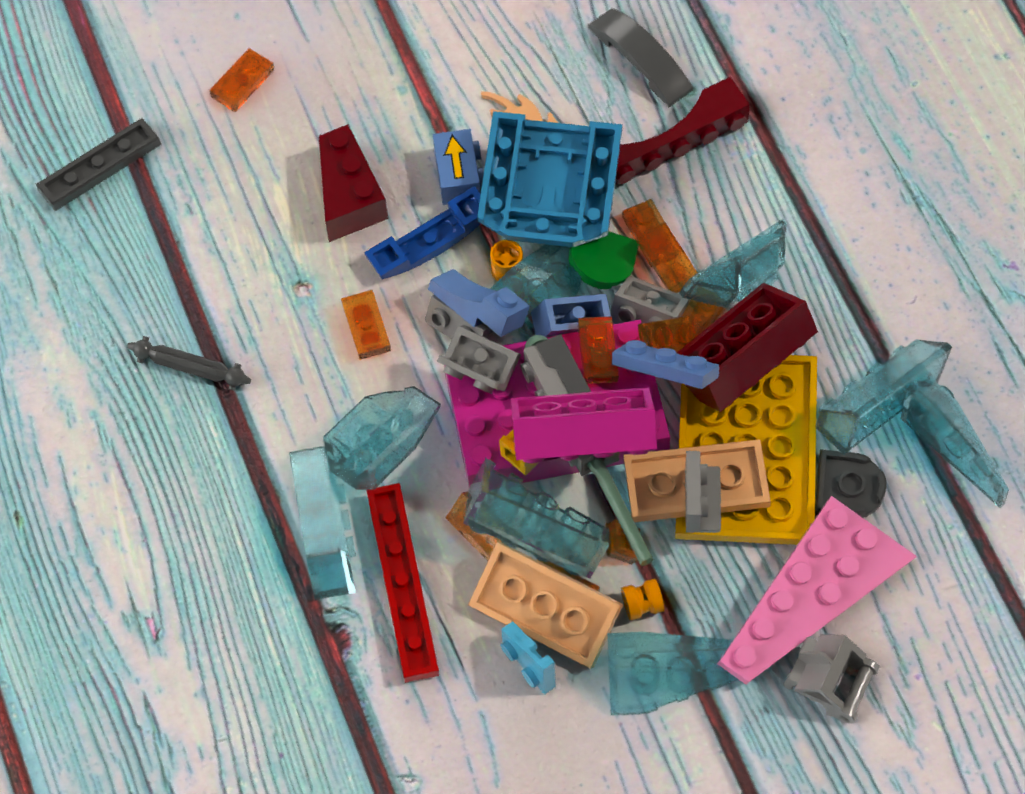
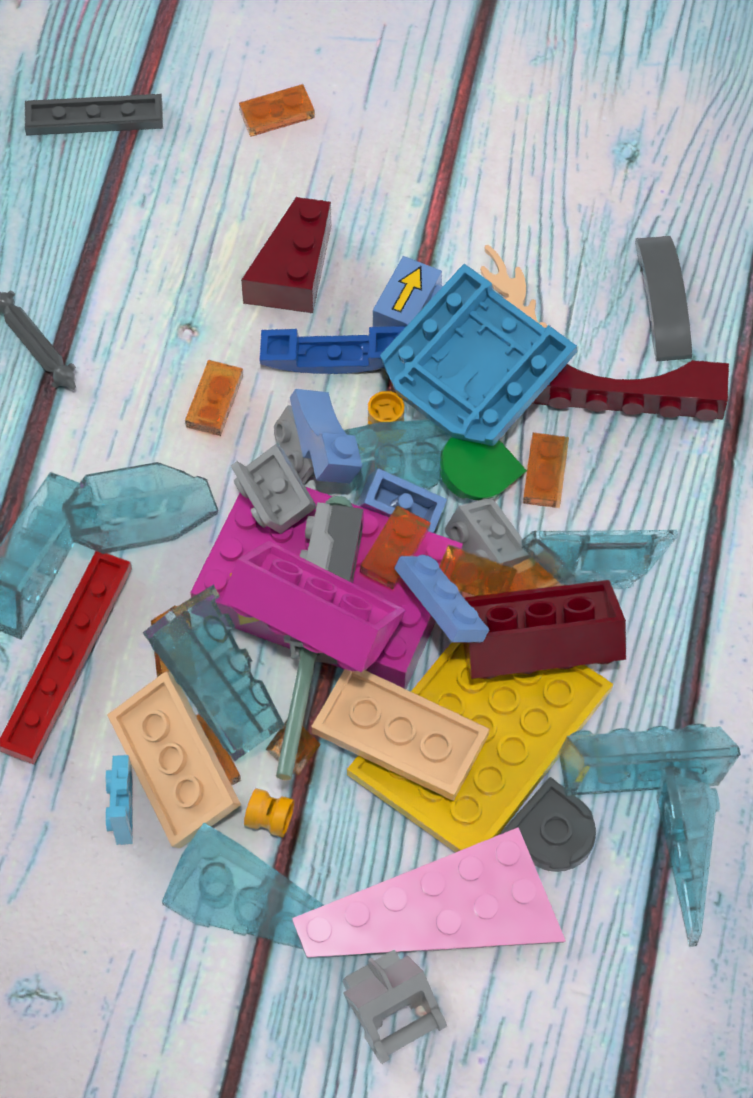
camera: 30 degrees right, 0 degrees up
(667, 257) = (537, 498): clear orange plate -> none
(702, 495) = (384, 745): light grey bracket -> none

